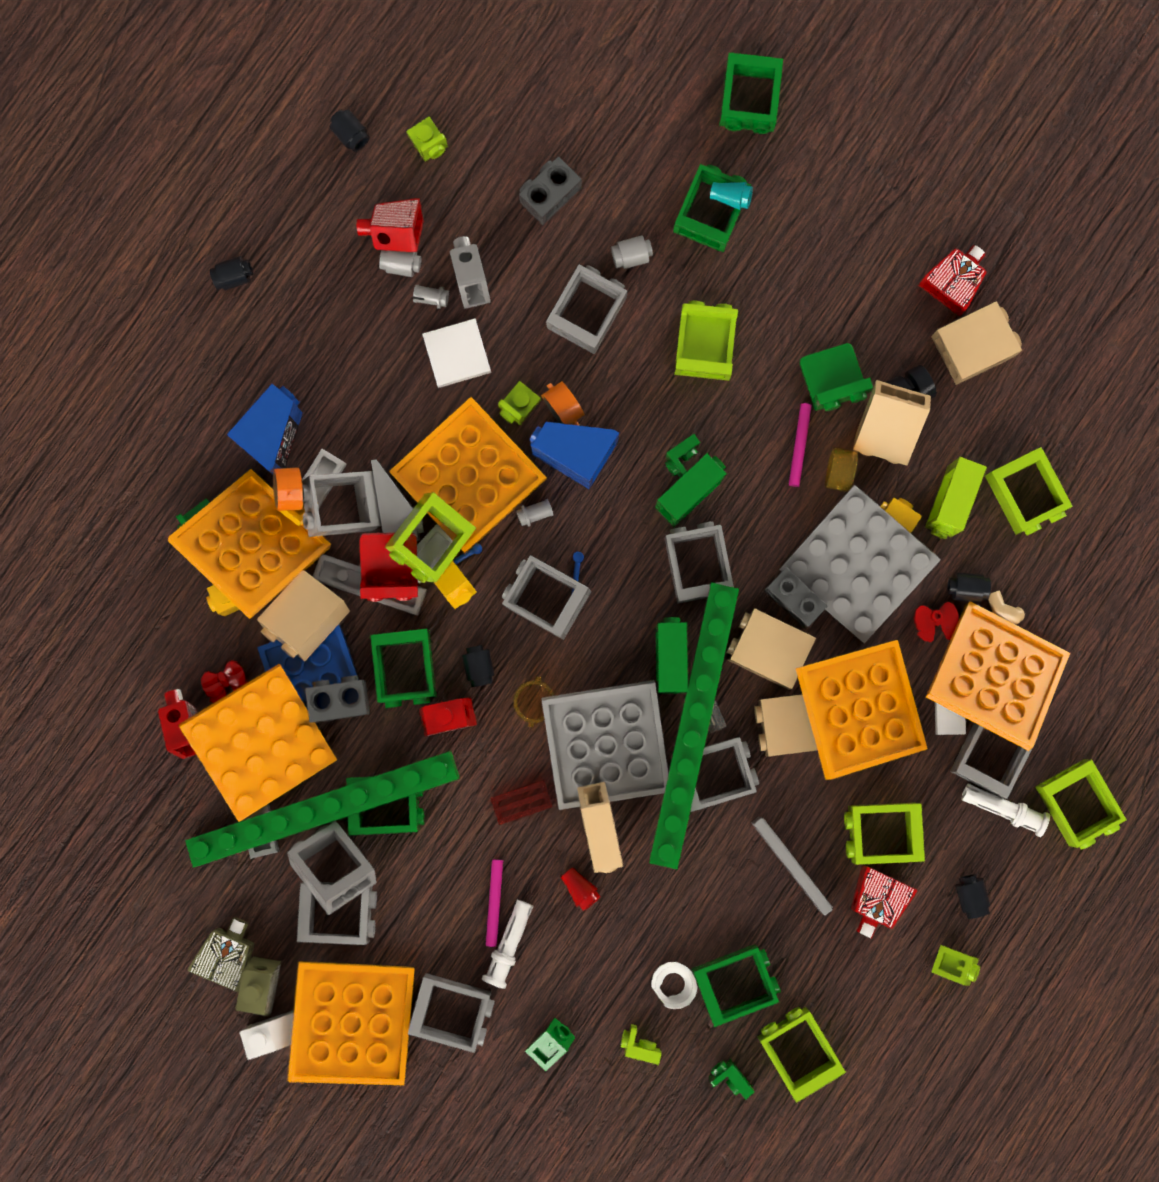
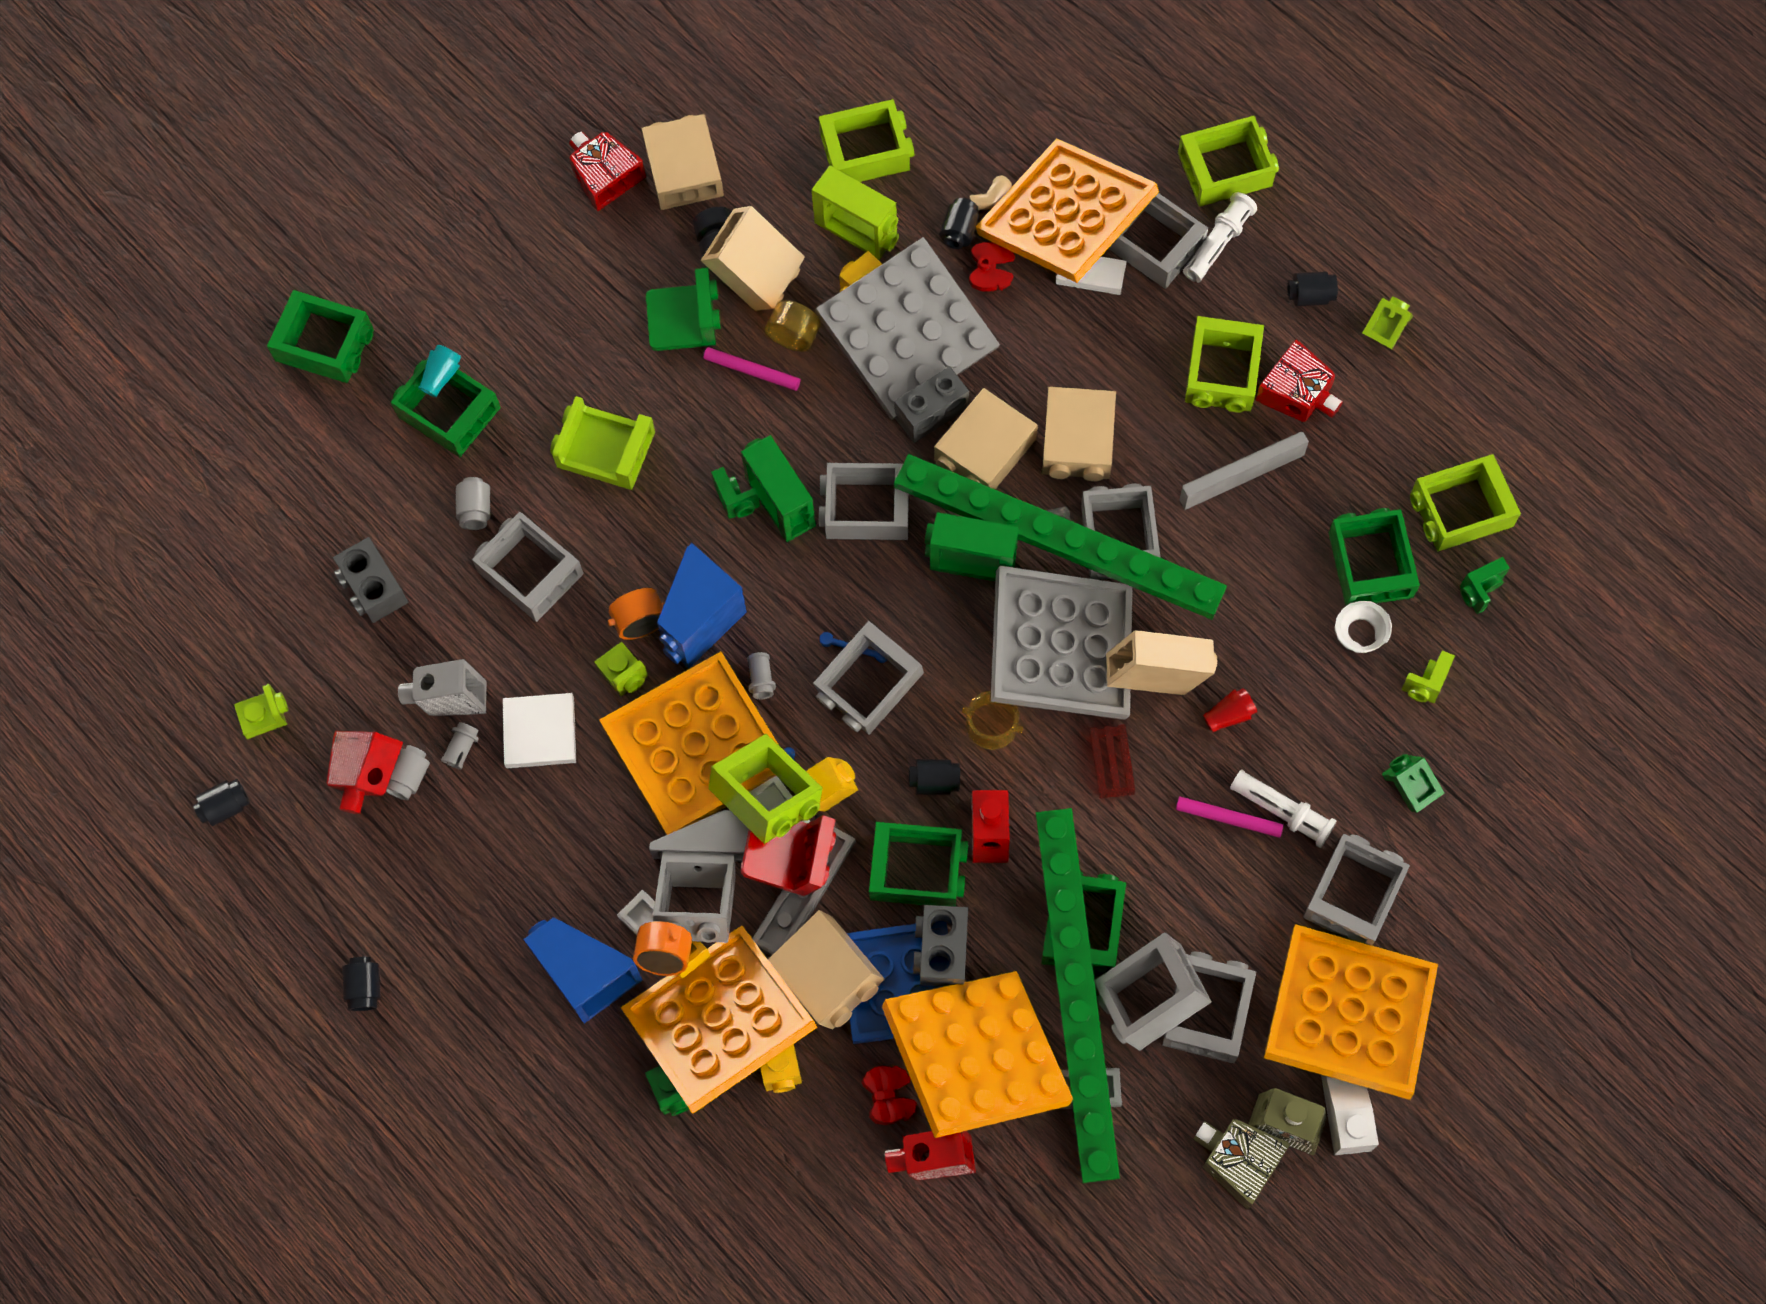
camera: 75 degrees left, 15 degrees down
(861, 709) = (1076, 356): light orange plate -> none

